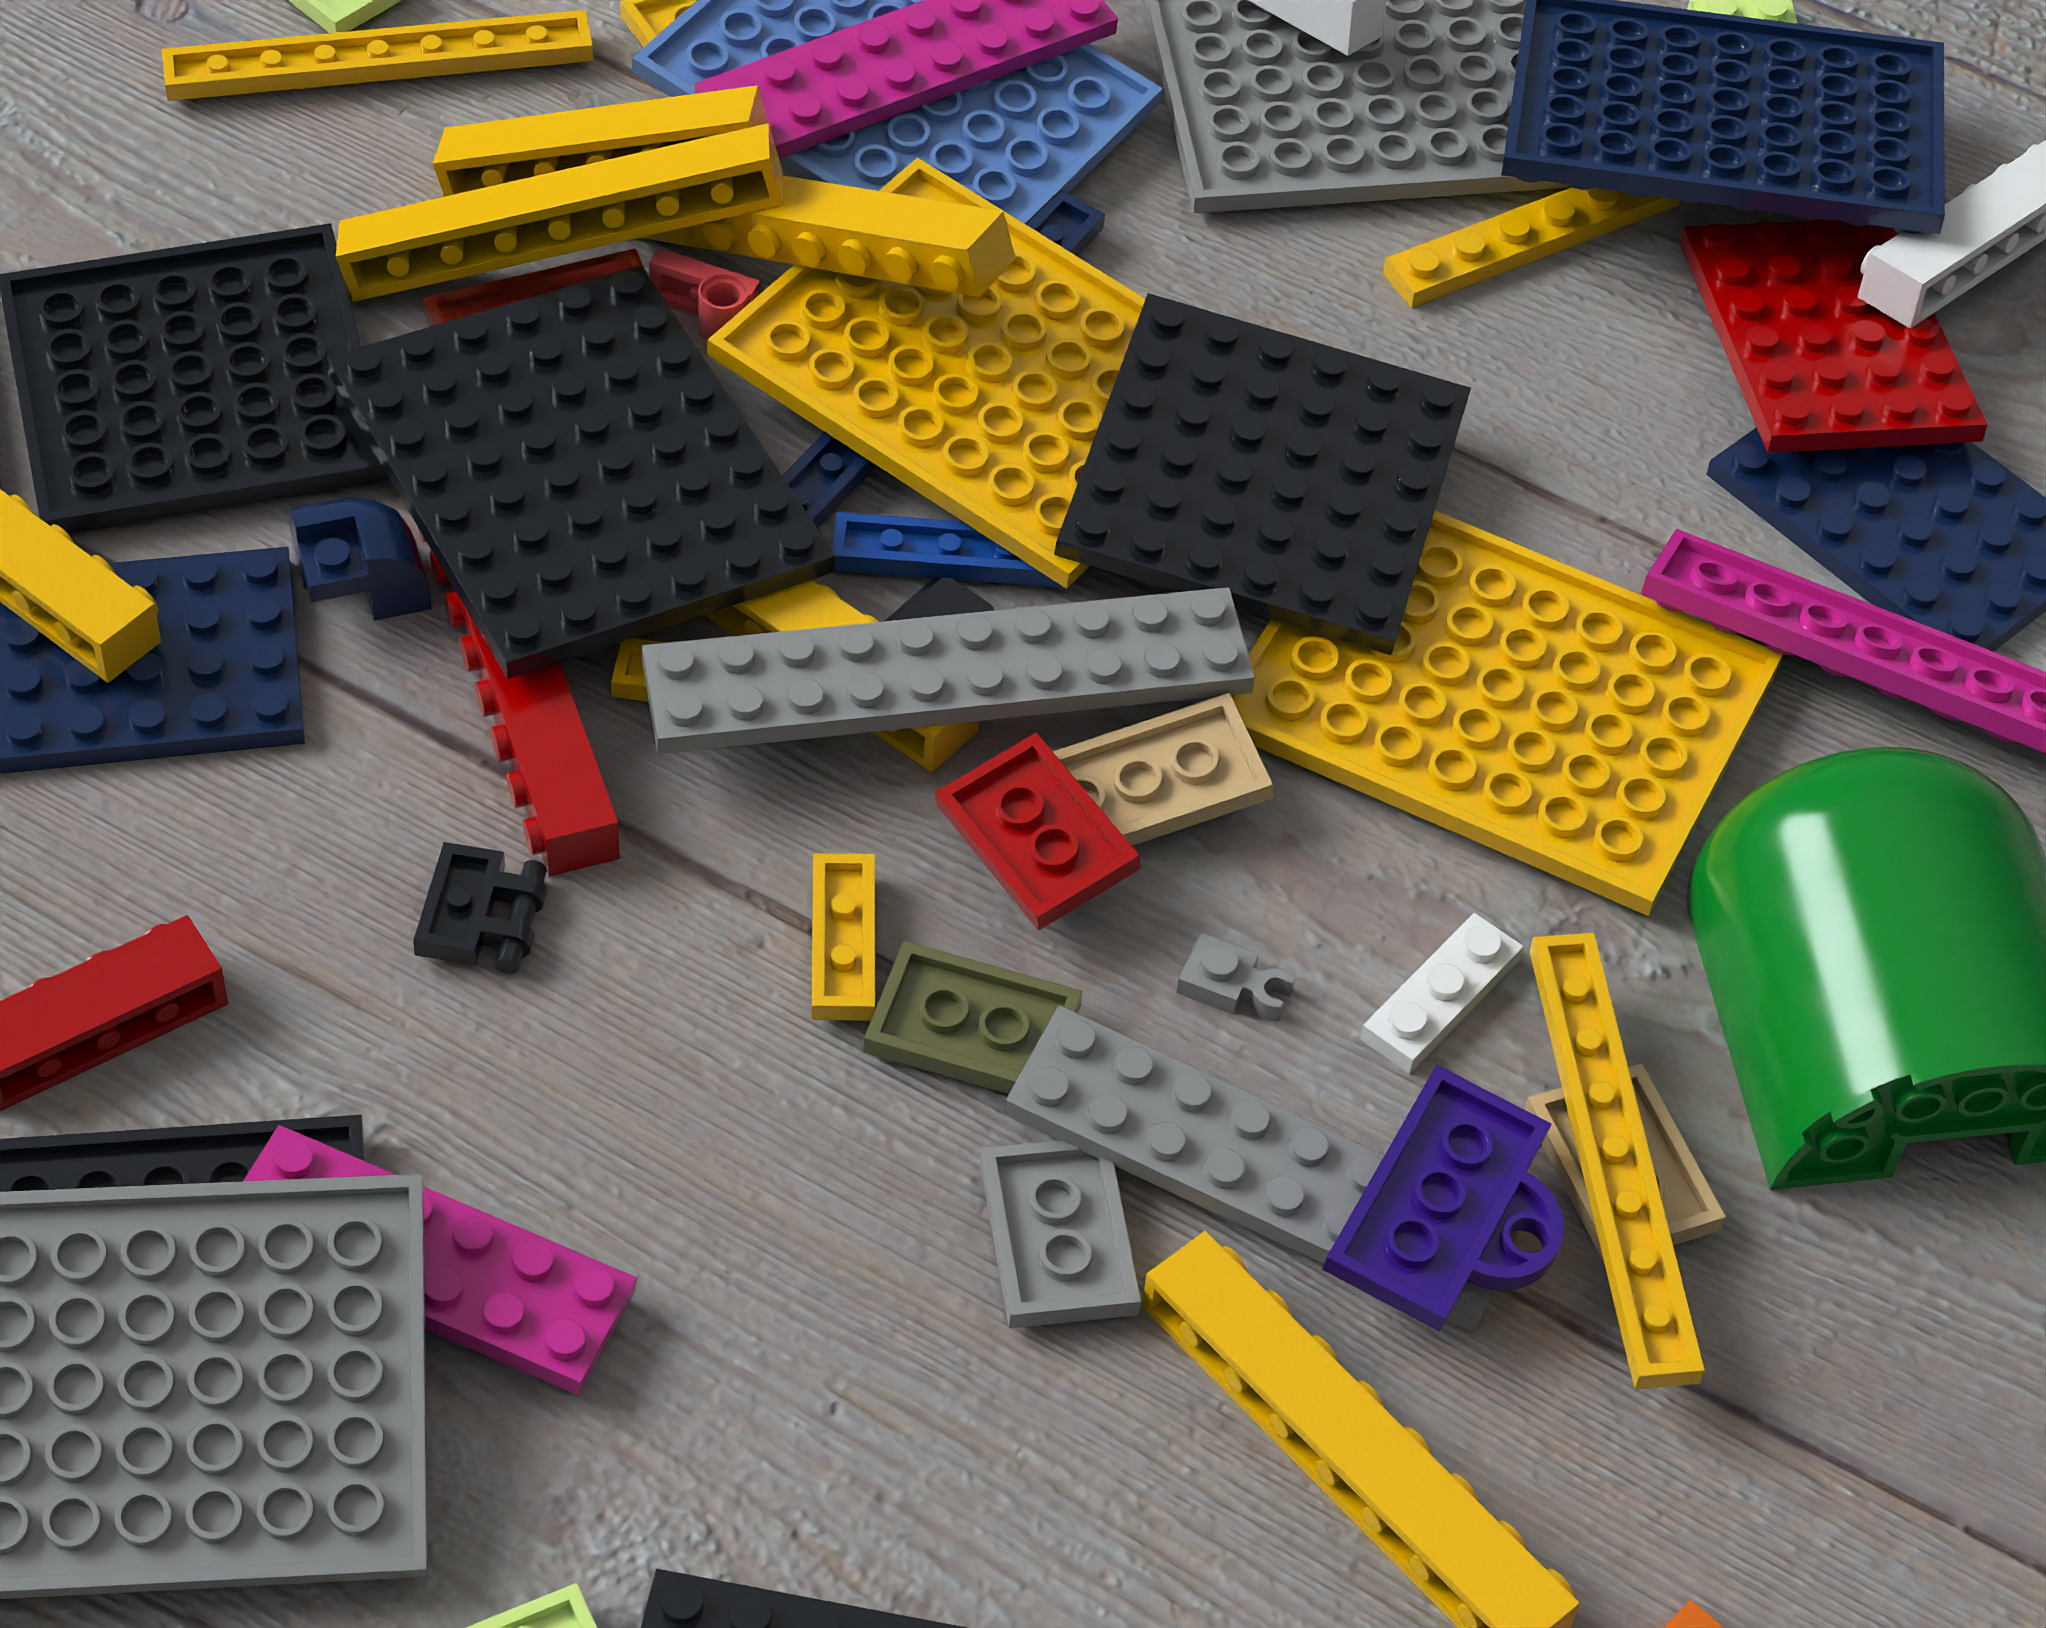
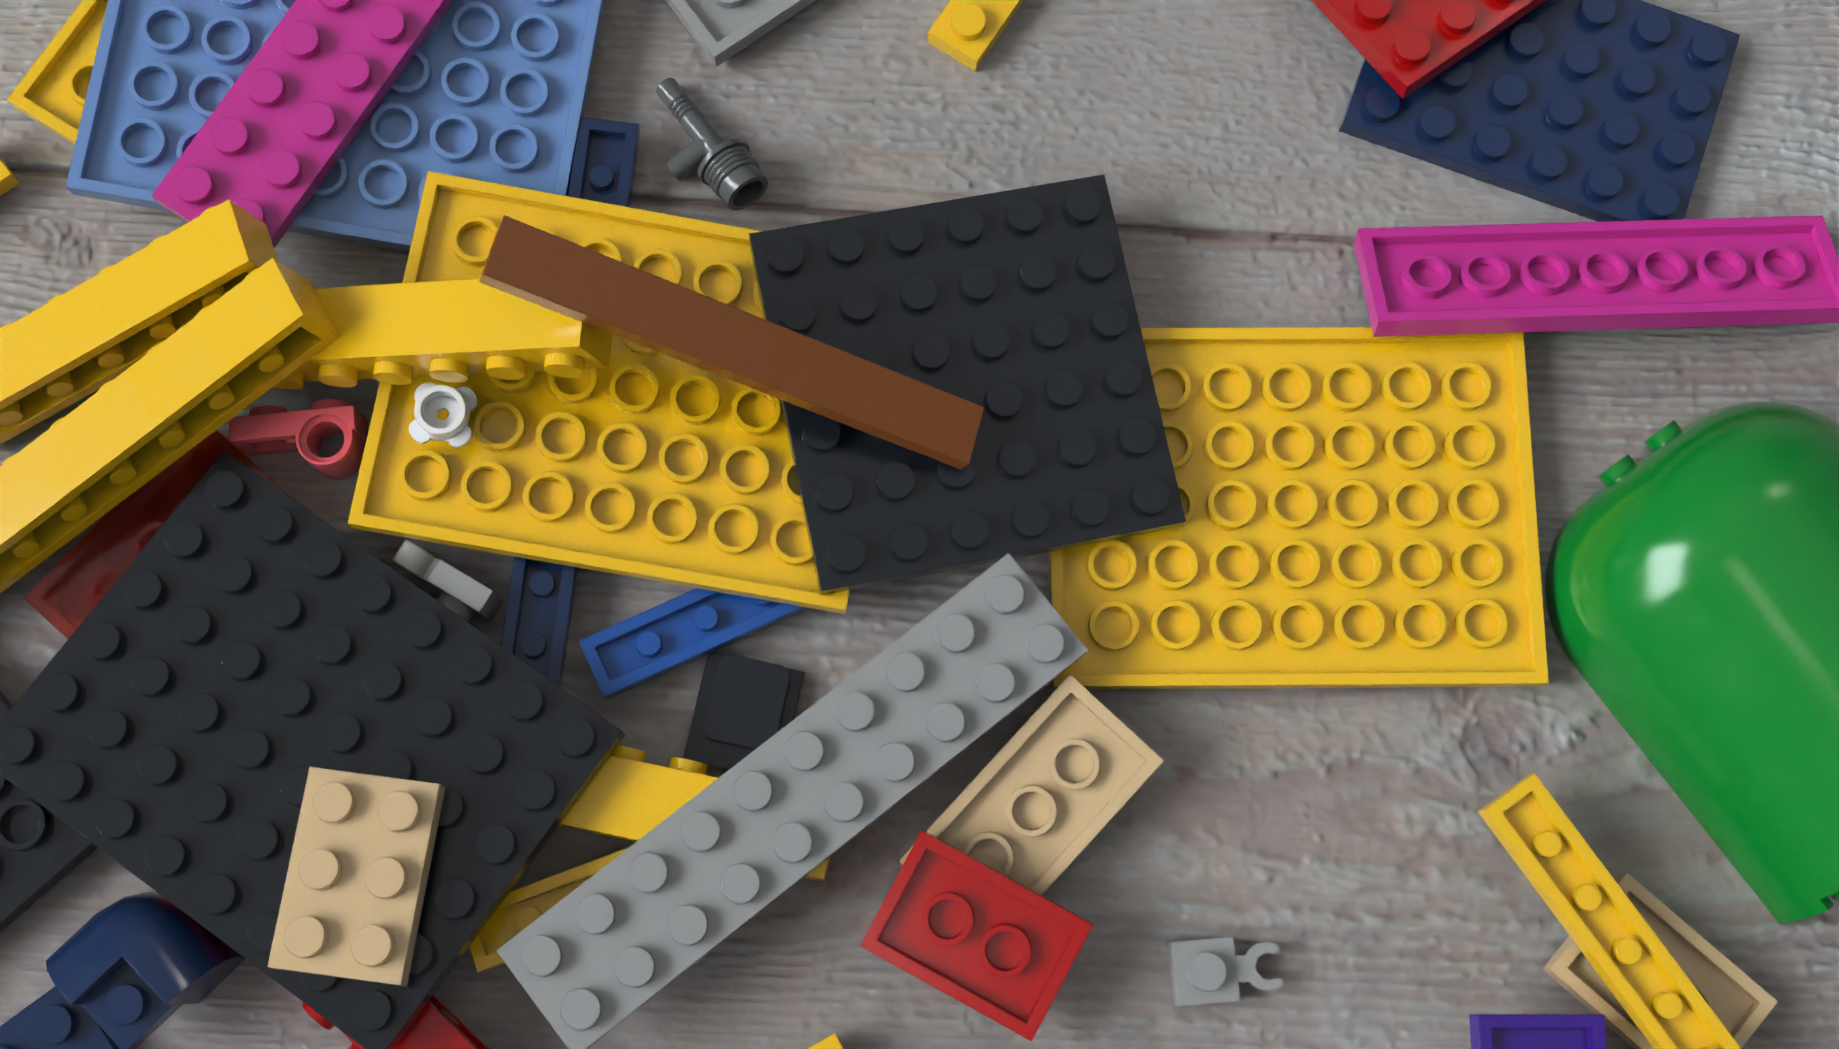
camera: 30 degrees left, 25 degrees up
(569, 538) = (357, 877): none -> tan plate
(764, 426) = (458, 590): none -> light grey plate
(828, 299) = (431, 400): none -> white plate
(1093, 319) = (730, 342): none -> dark orange tile
(1155, 265) = (722, 165): none -> dark grey piece
(1441, 993) = (1408, 878): white plate -> none

